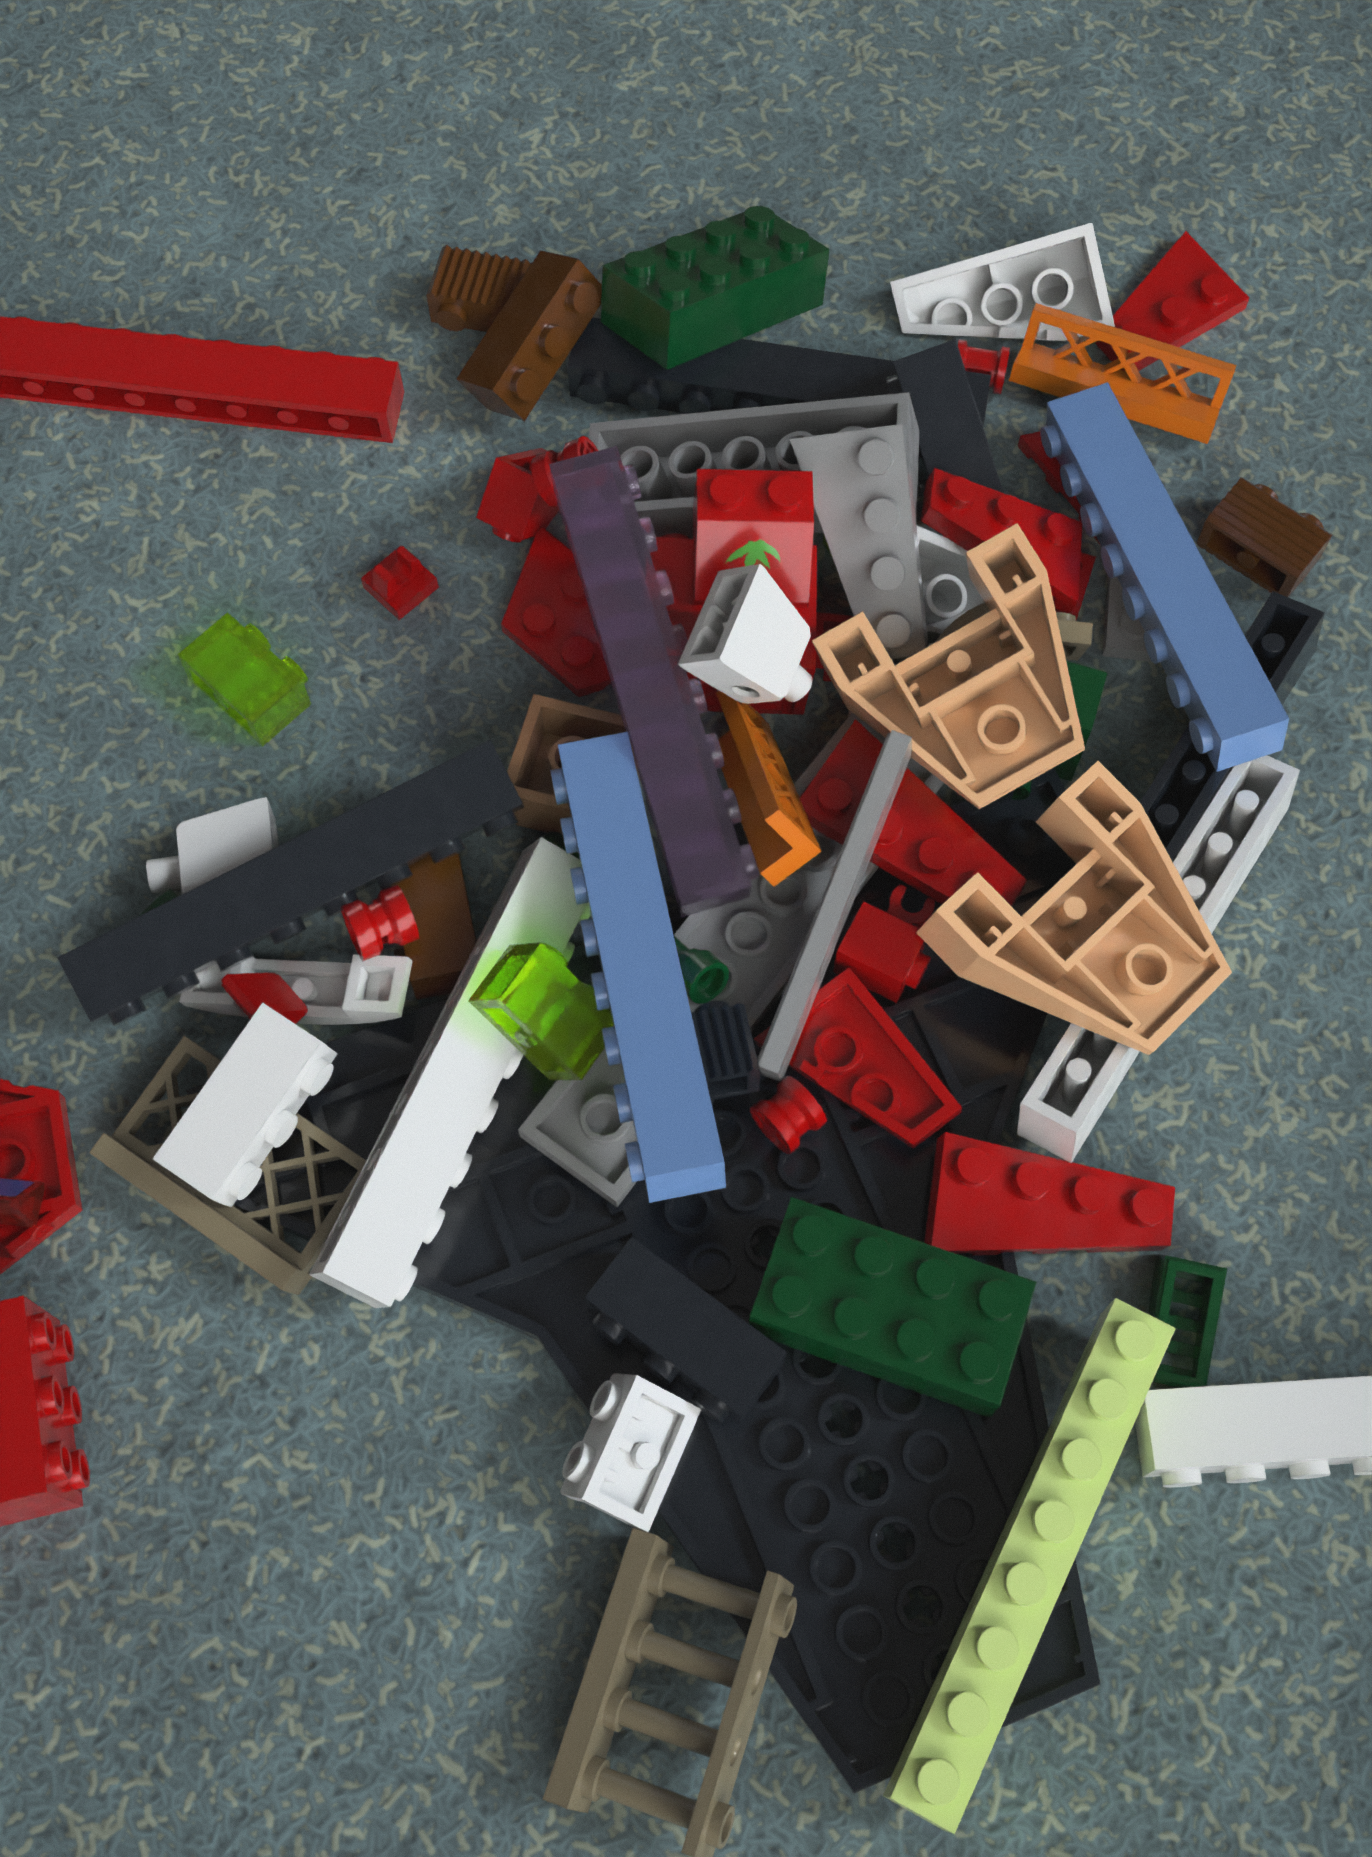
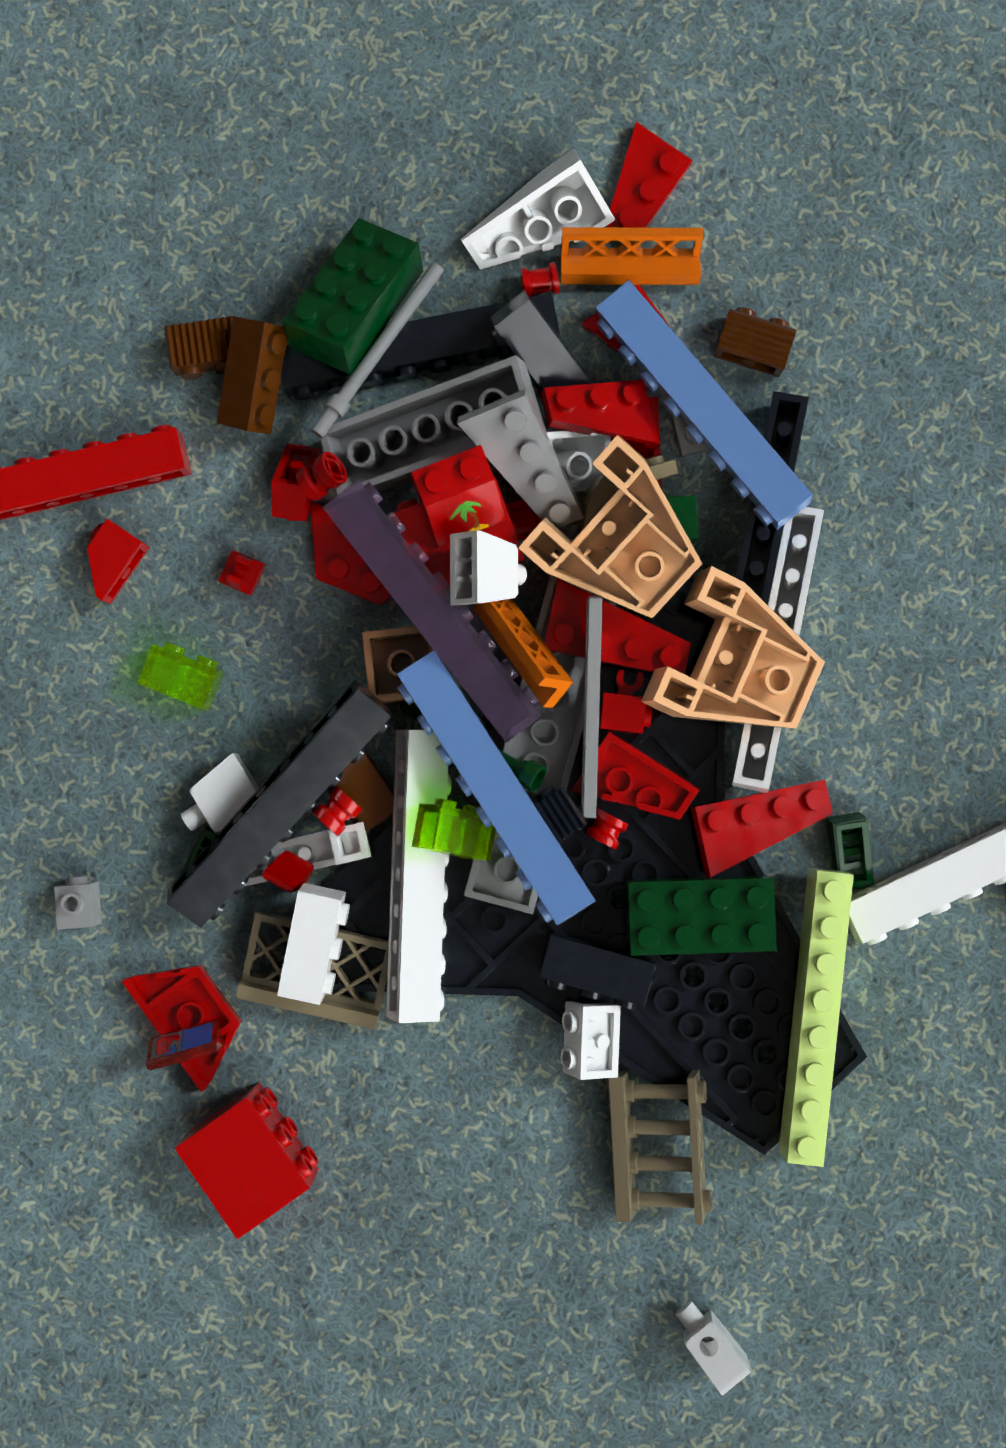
camera: 25 degrees left, 20 degrees up
(231, 498) = (113, 558): none -> red slope
(635, 395) = (339, 403): none -> light grey bar

